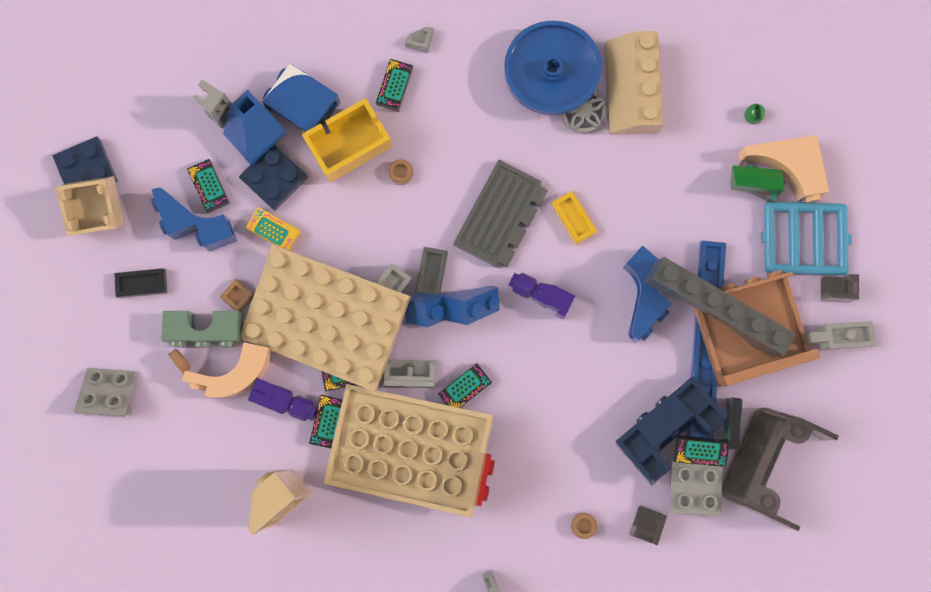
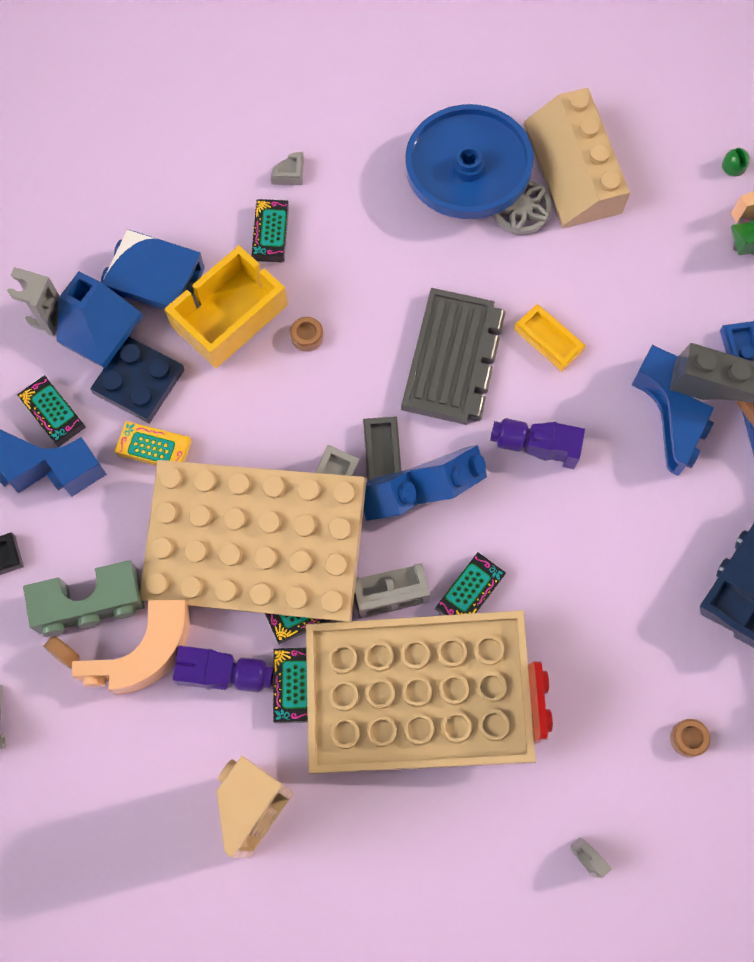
camera: 15 degrees left, 10 degrees down
(237, 295) = (123, 544): medium nougat tile -> none

